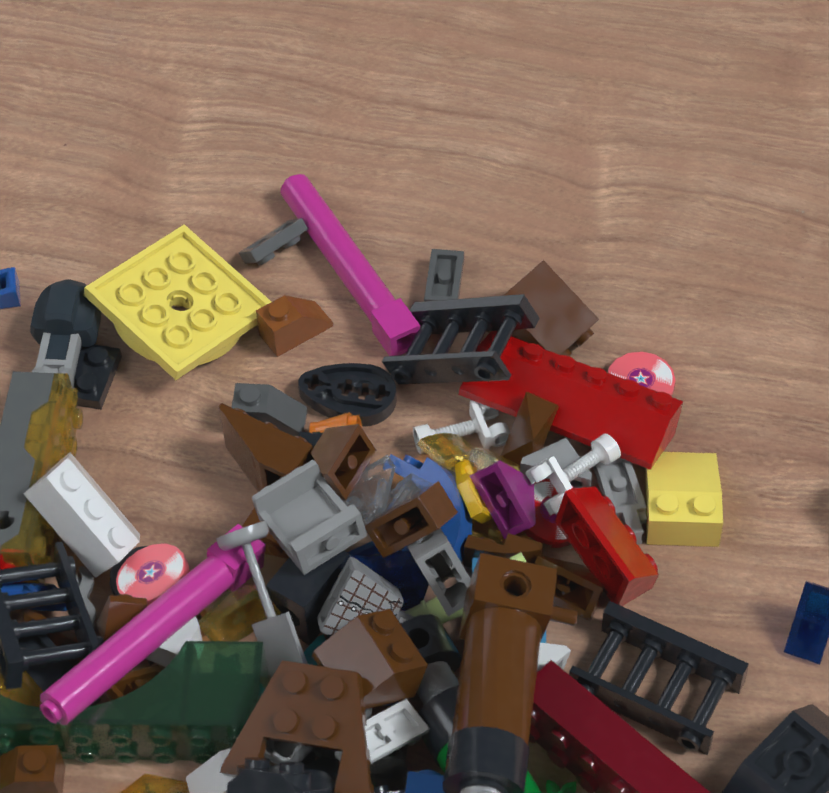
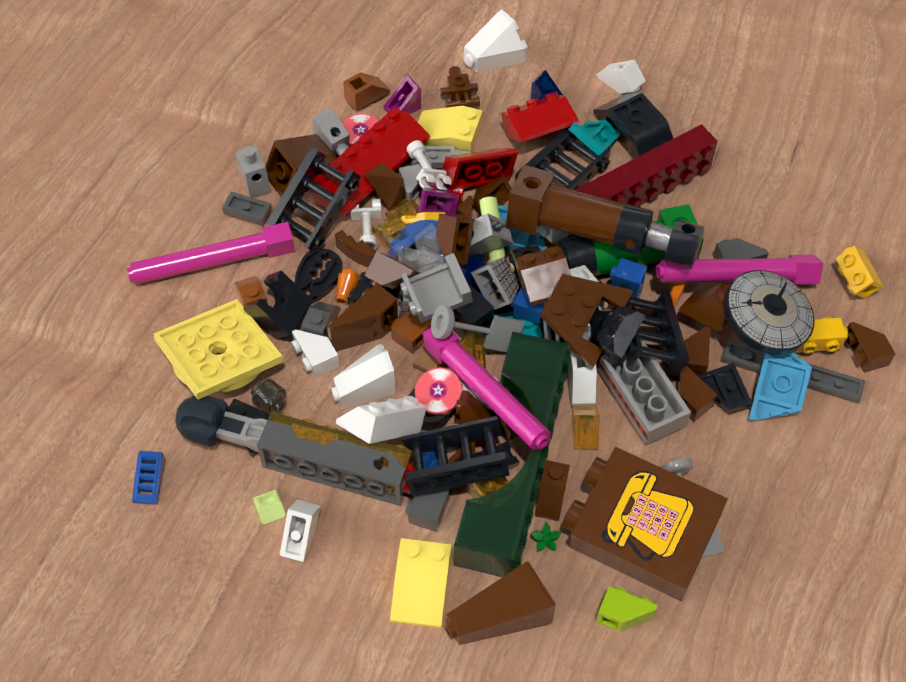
camera: 80 degrees left, 5 degrees up
(124, 383) = (268, 396): none -> clear smoke head
(178, 491) = (365, 379): none -> white slope
(201, 423) = (316, 352): none -> white slope
(254, 363) = (289, 306): none -> black piece
(284, 235) = (176, 294): dark grey plate -> none
(401, 427) = (358, 252): none -> reddish brown slope
(503, 261) = (250, 163): none -> light grey torso
(605, 334) = (331, 131): none -> light grey torso
(718, 361) = (363, 90): none -> dark orange slope
(721, 421) = (406, 97): none -> magenta slope
(740, 709) = (596, 135): none -> teal wing
(742, 613) = (538, 117): none -> red slope
(770, 492) = (459, 89): none -> reddish brown piece

